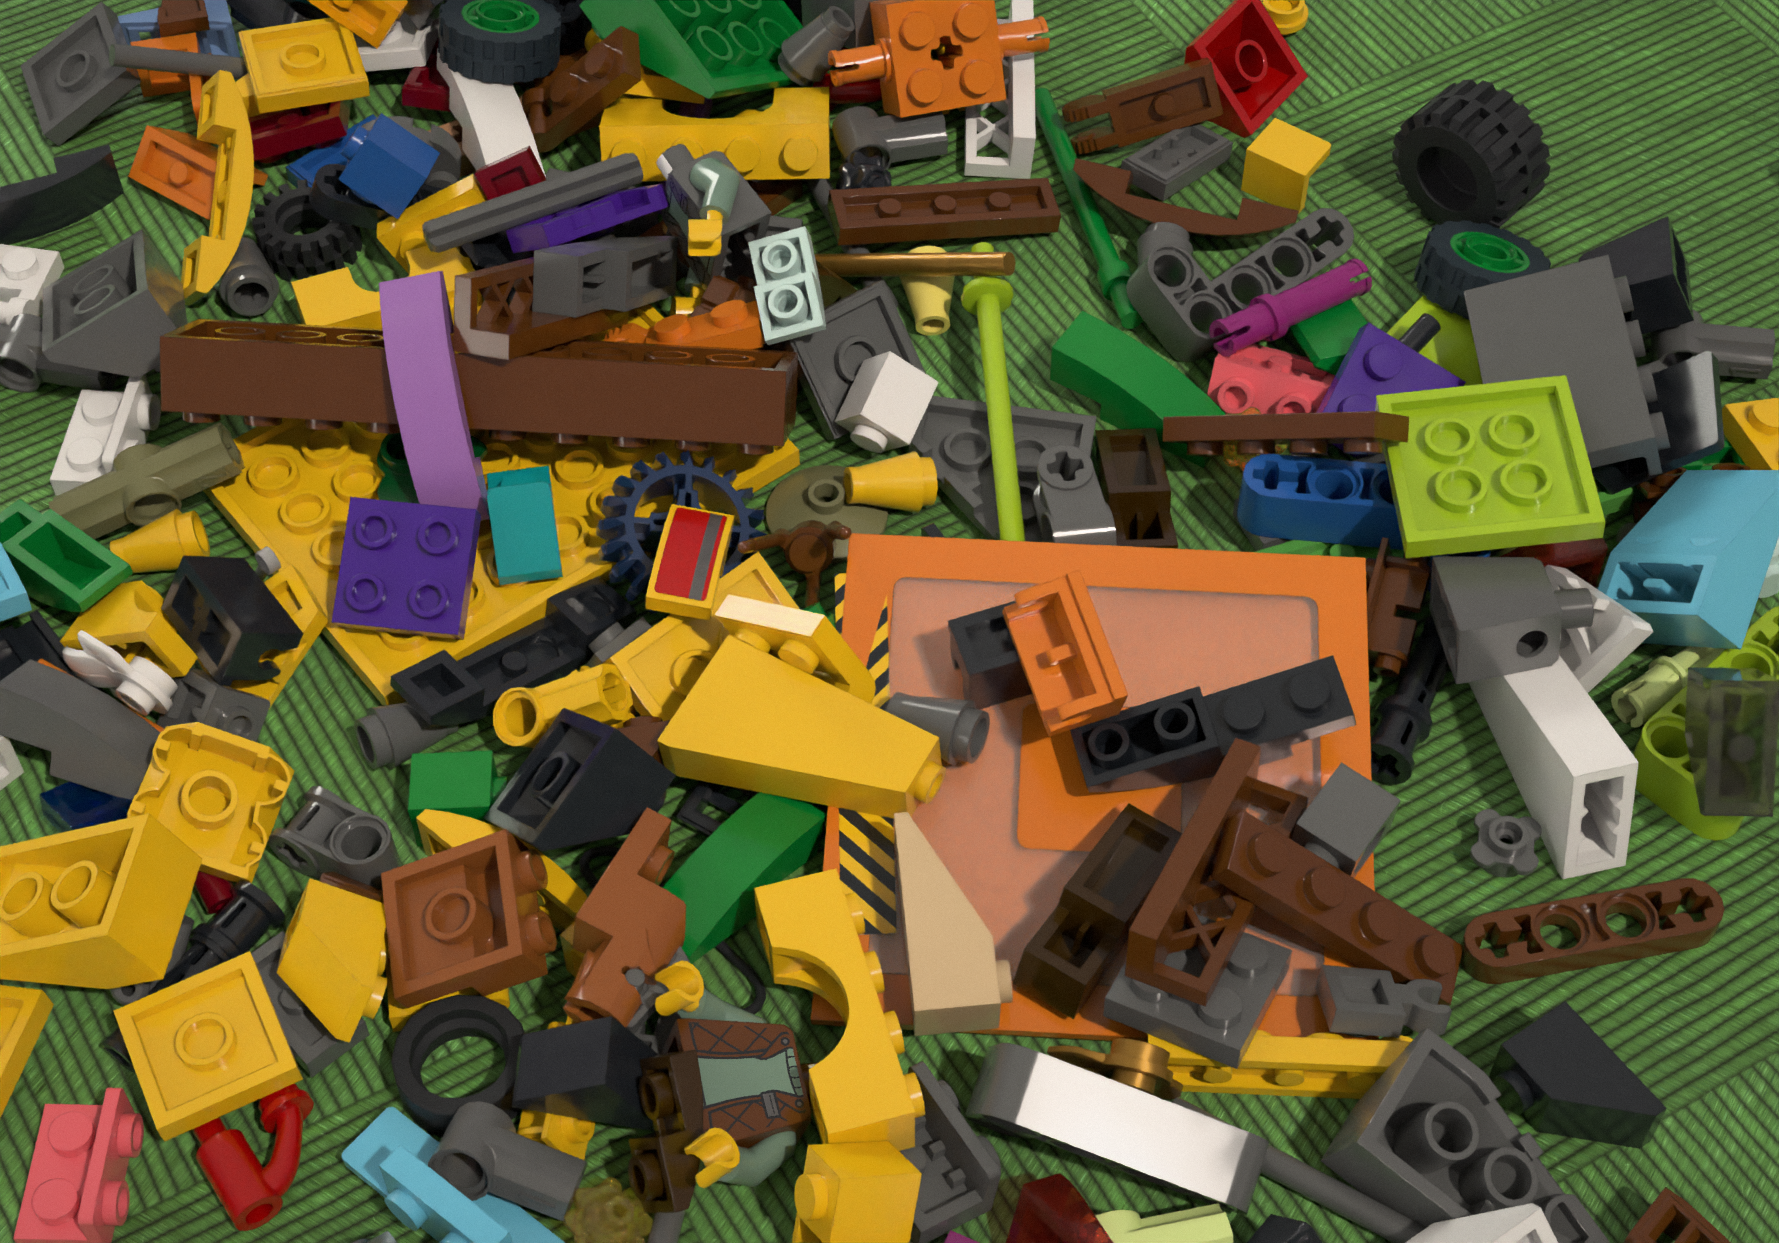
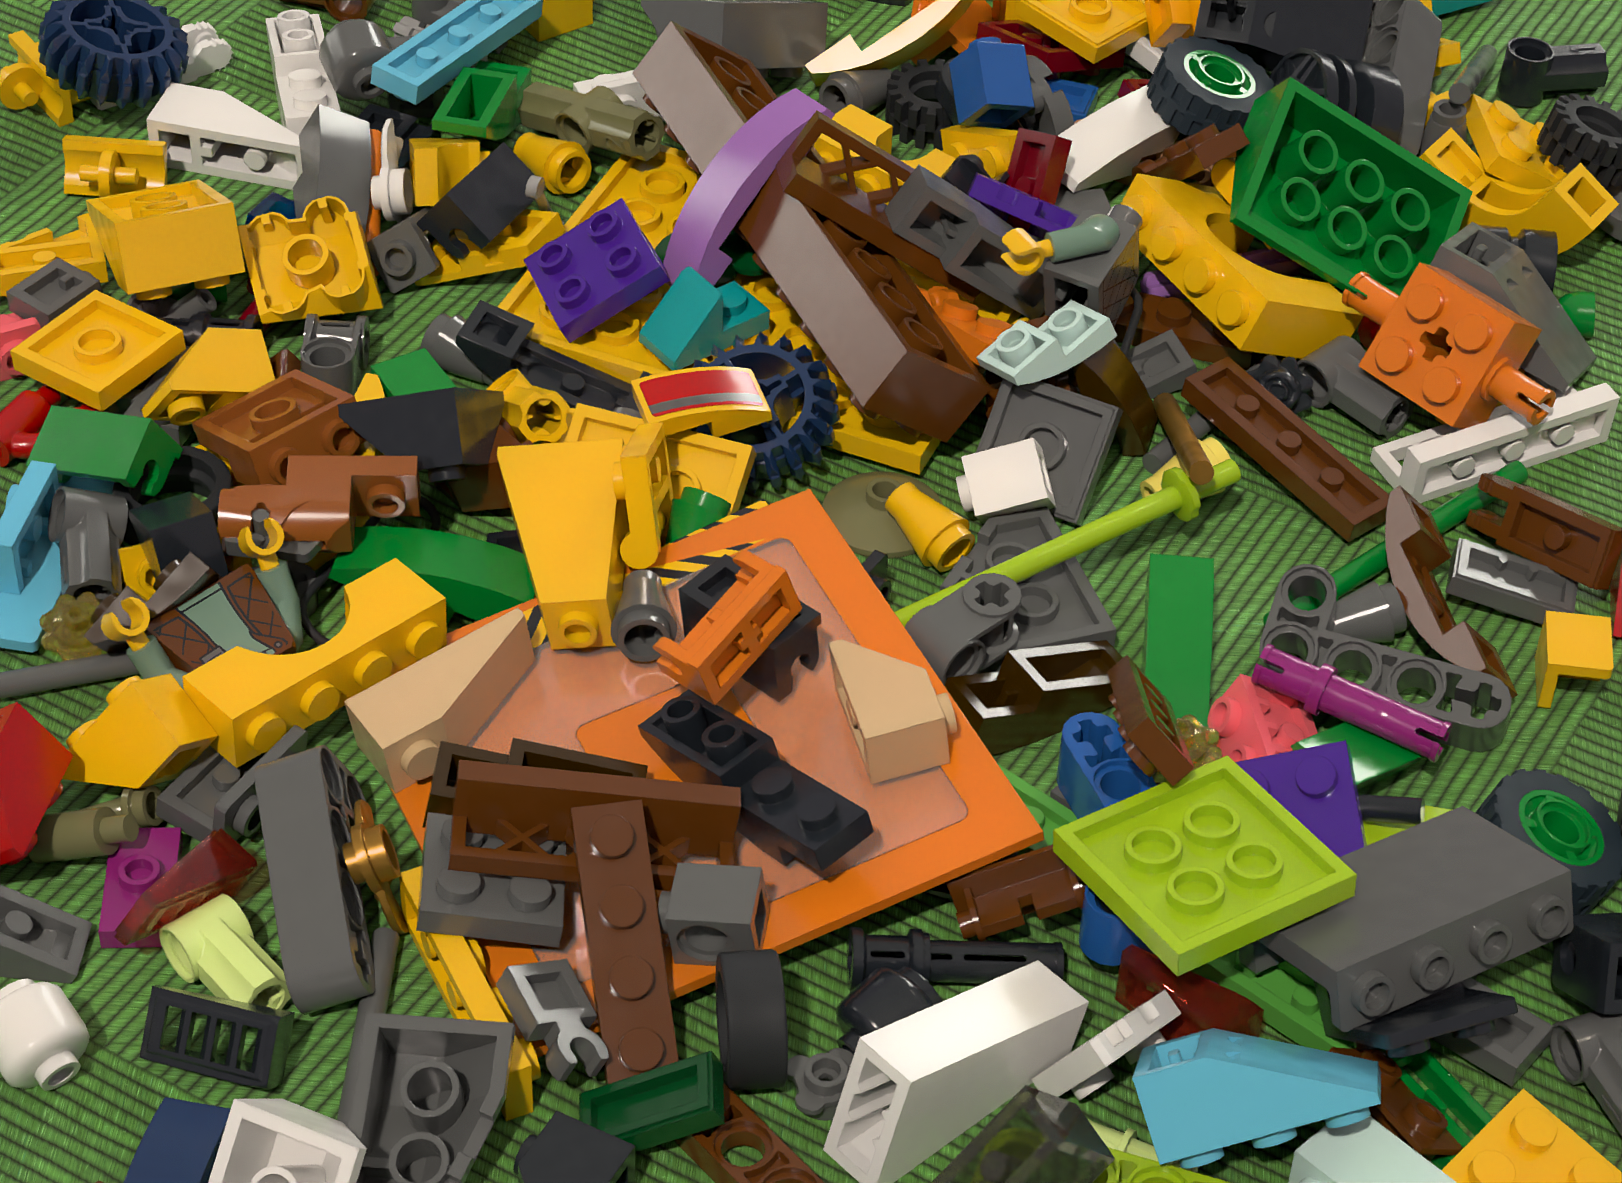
camera: 60 degrees right, 10 degrees down
(68, 1058) = (51, 291): none -> dark grey bracket
(395, 1098) = (105, 447): none -> green hinge
(532, 202) = (1013, 169): dark grey axle -> none
(806, 51) = (1389, 268): dark grey cone -> none
(806, 549) = (831, 496): reddish brown plant -> none
(1186, 595) = (891, 711): none -> tan slope
(1457, 830) = (751, 1019): none -> black tyre
(1468, 765) = (880, 1001): none -> black head
(1501, 615) = (1042, 948): dark grey torso -> none
(1501, 975) = (659, 1102): none -> dark green tile

